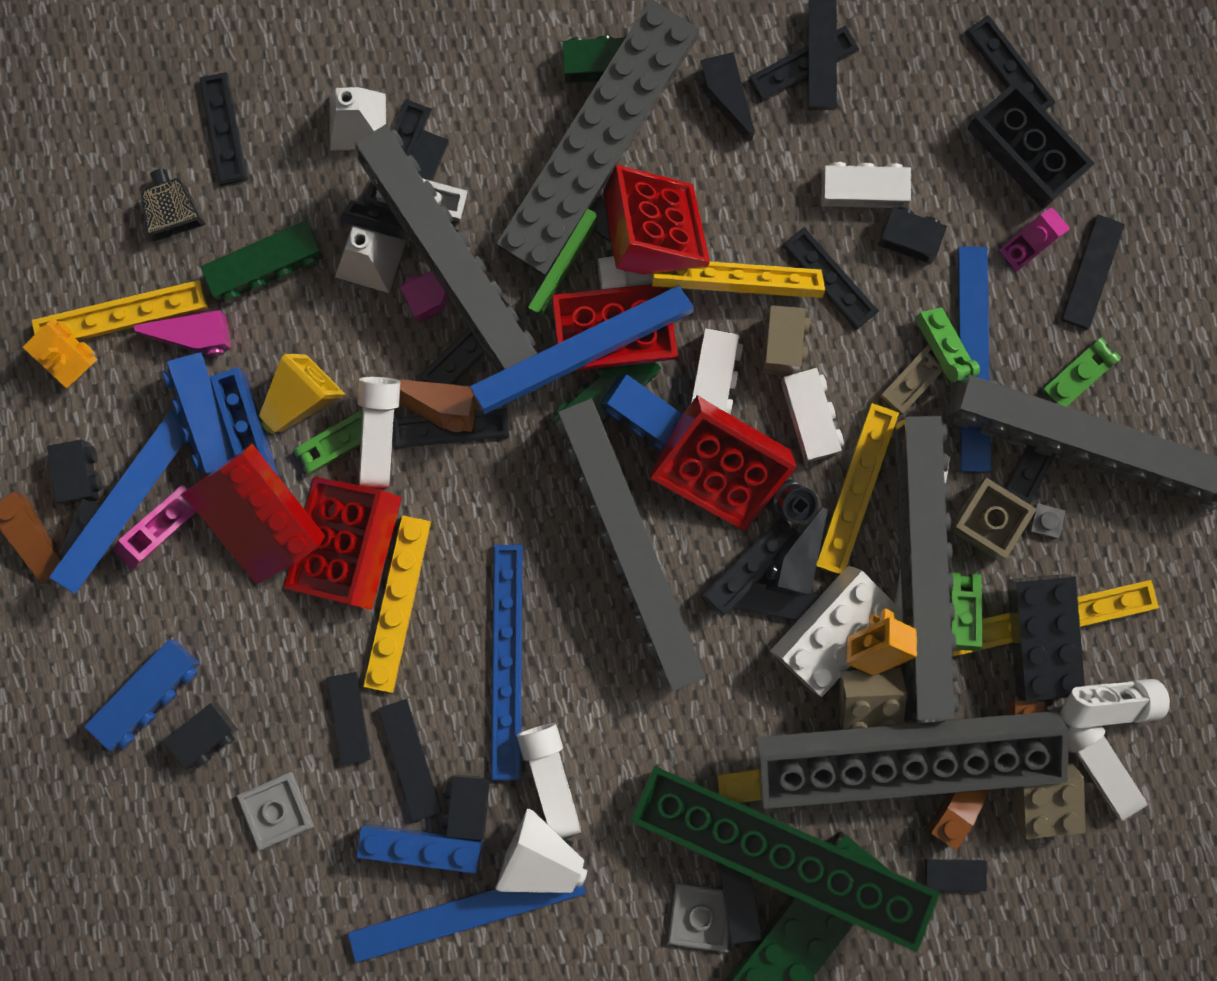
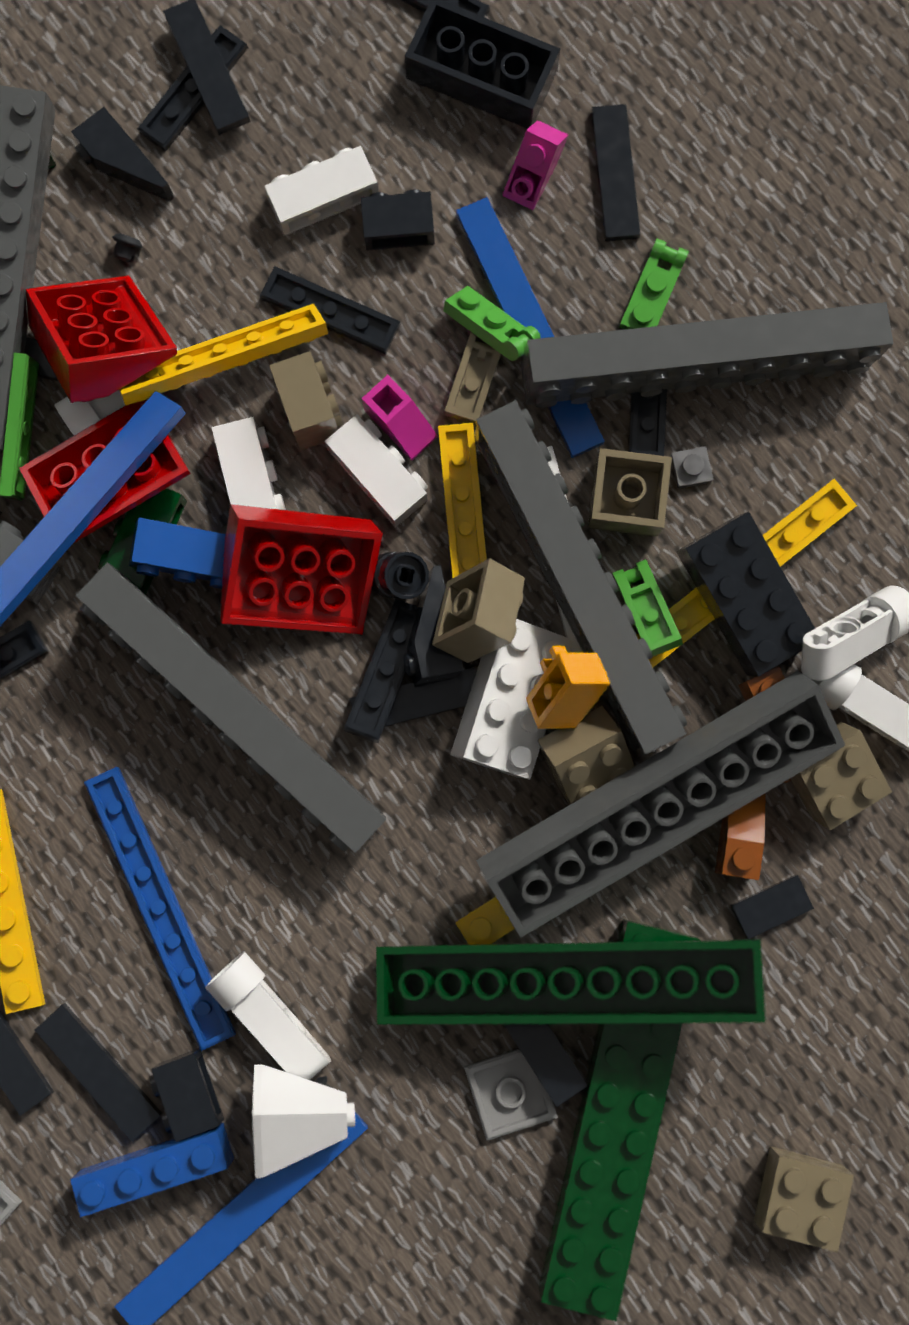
camera: 25 degrees left, 0 degrees up
(700, 162) = (126, 247): none -> black piece
(842, 557) = (479, 611): none -> dark tan brick
(846, 384) = (398, 417): none -> dark pink slope

